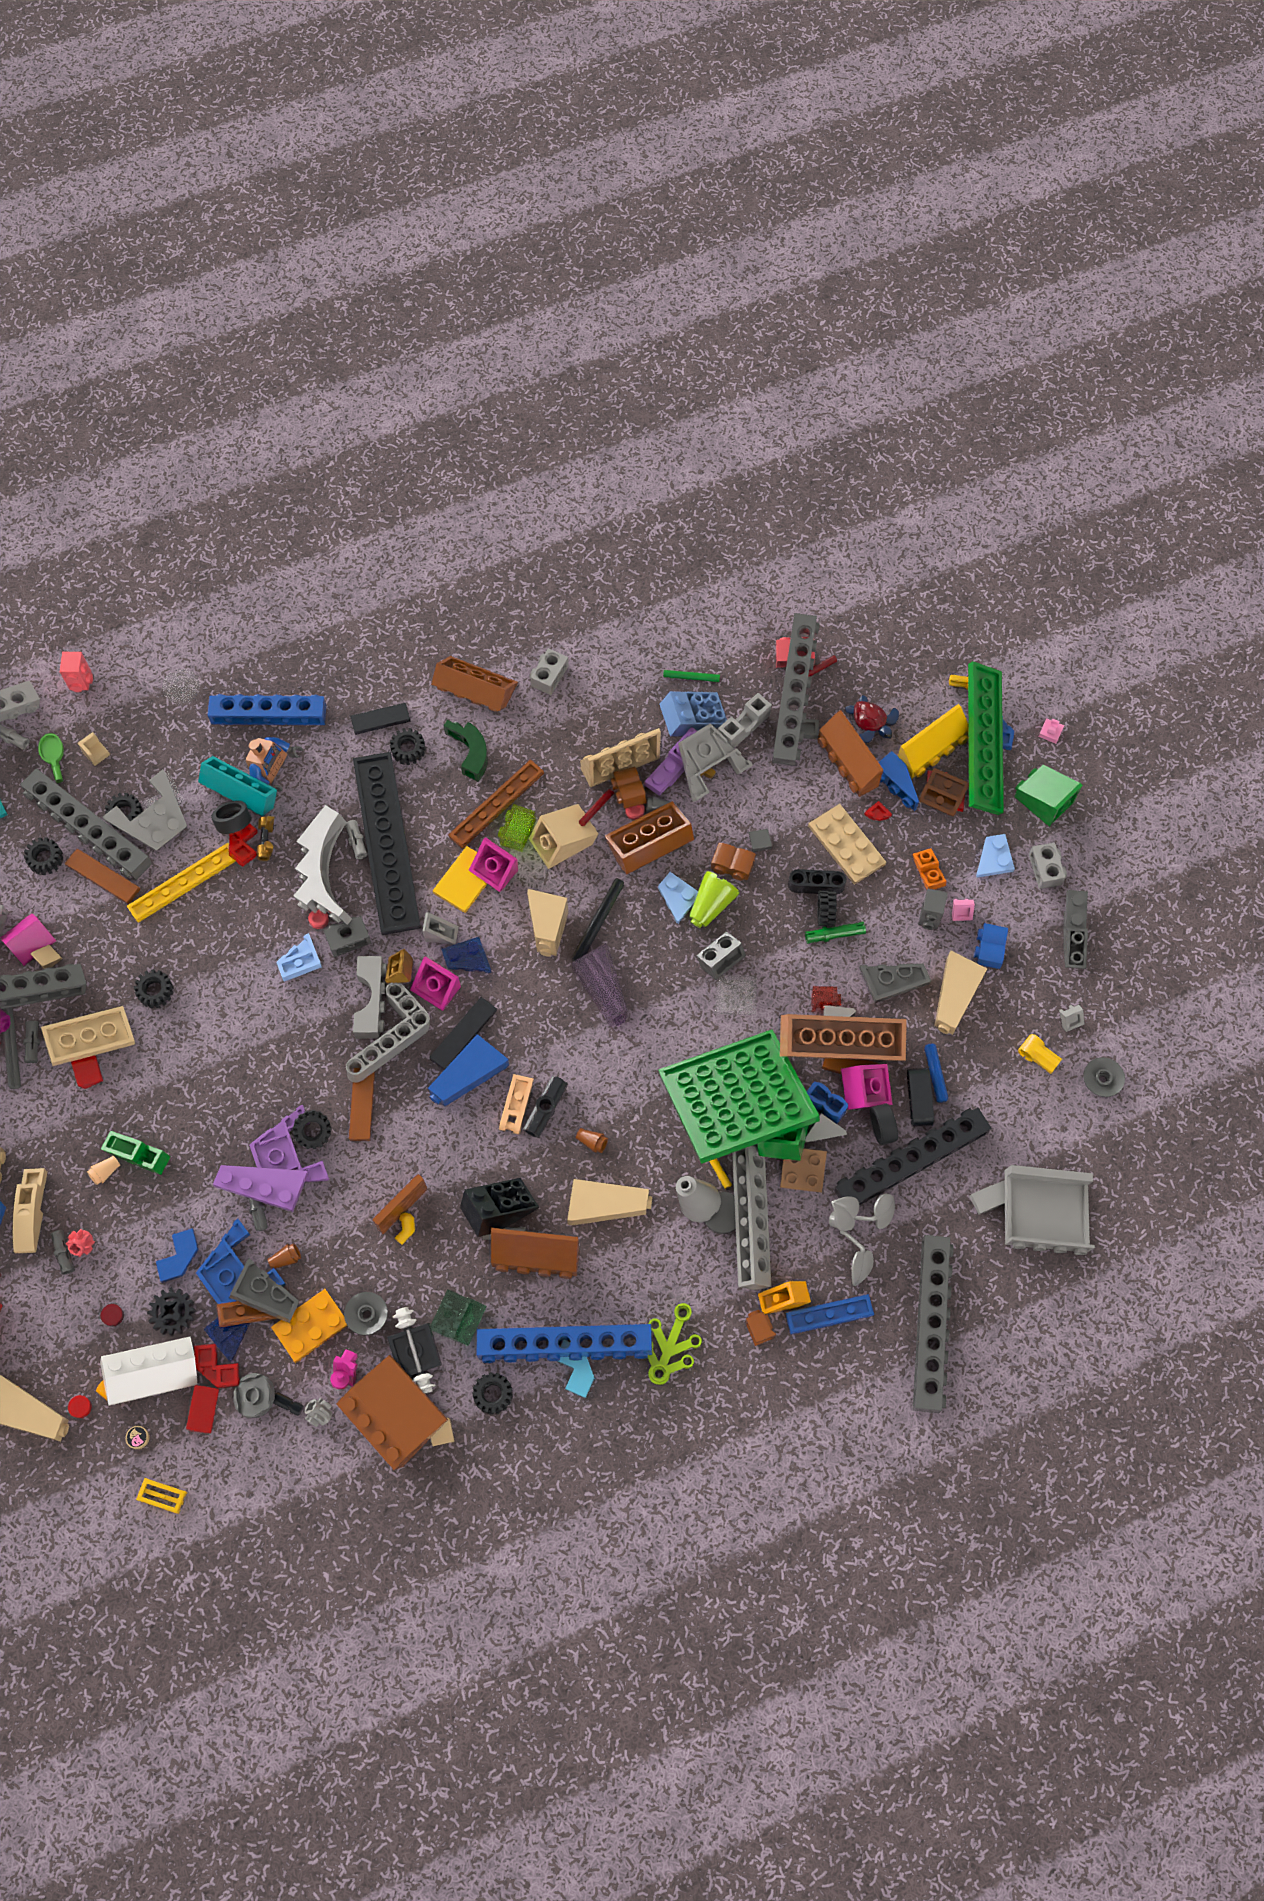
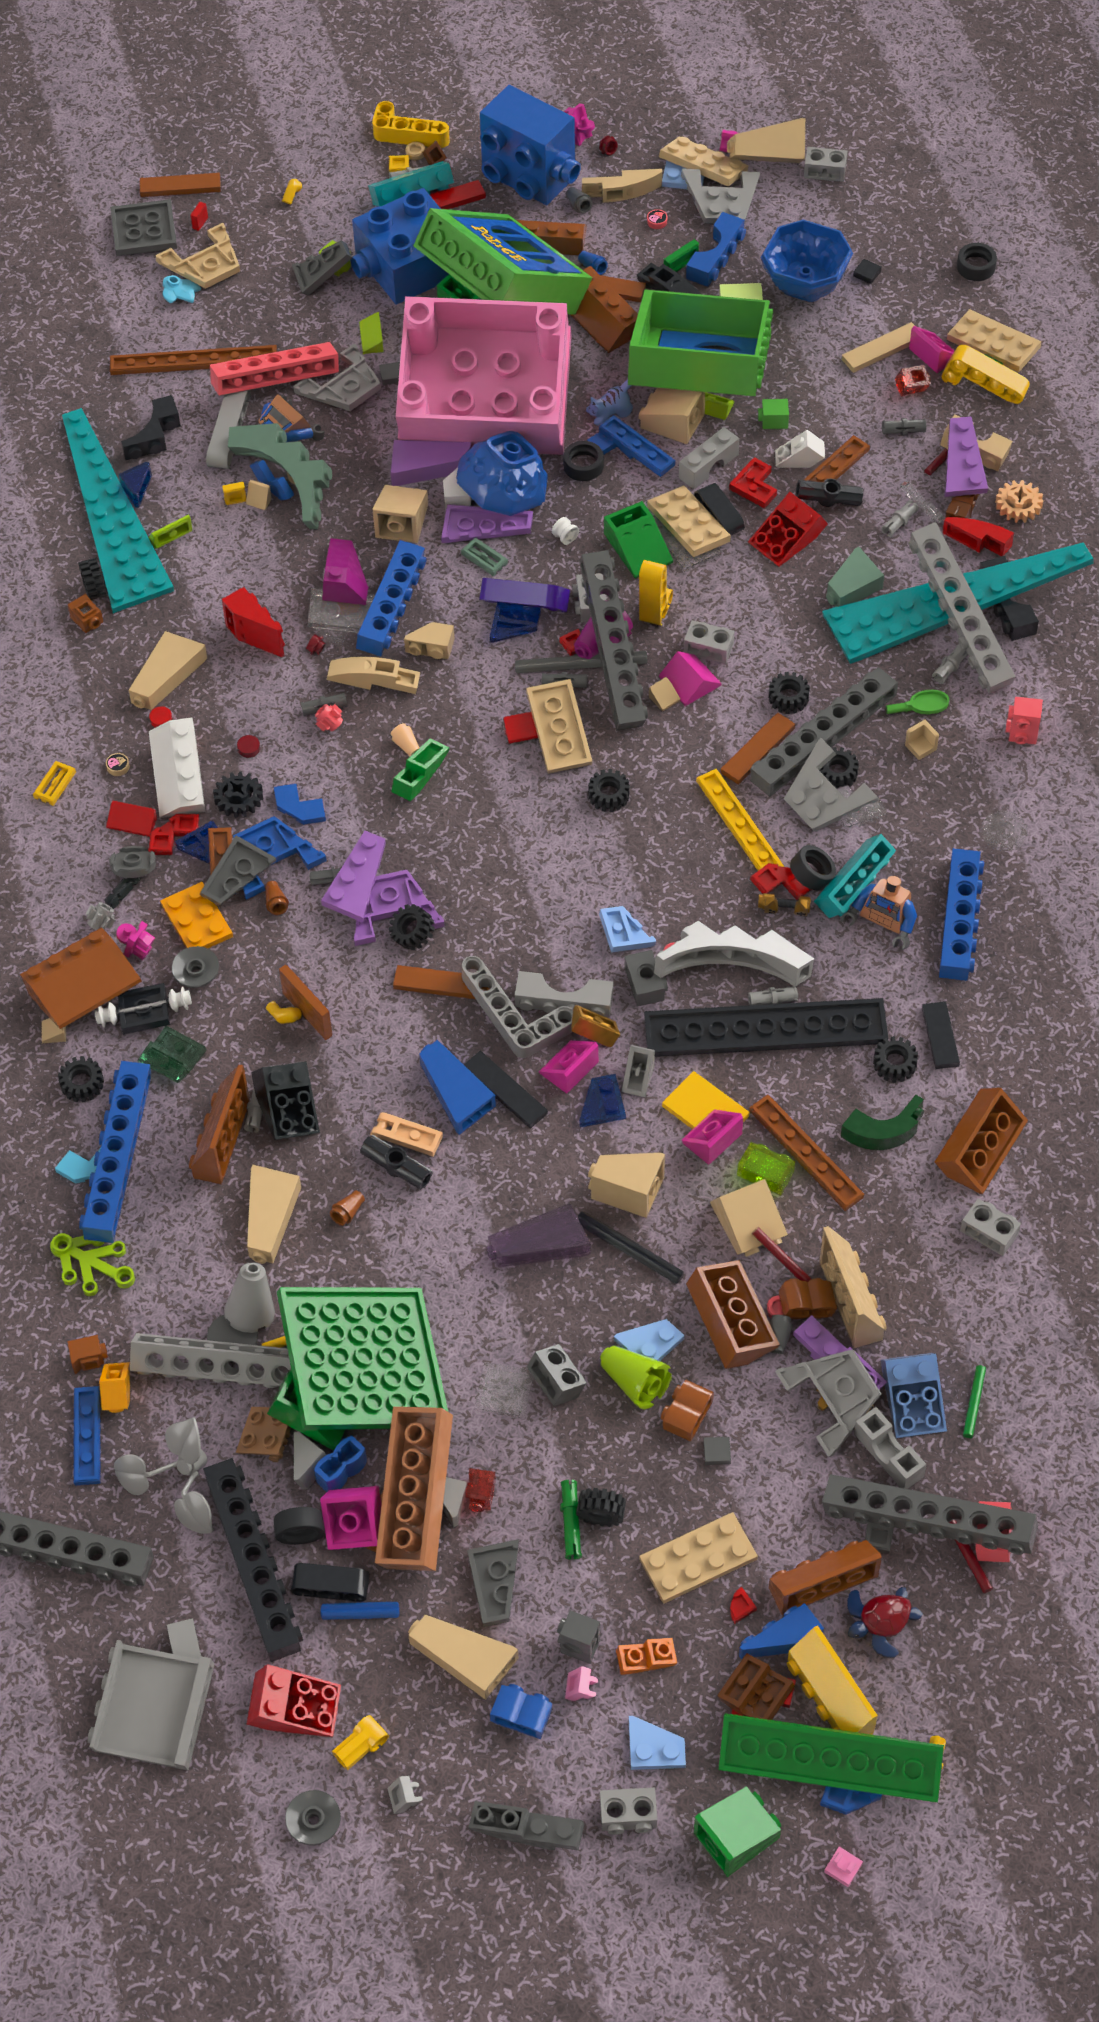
camera: 100 degrees right, 10 degrees down
(824, 876) = (644, 1495): black beam -> none
(1021, 1108) = (293, 1702): none -> red slope

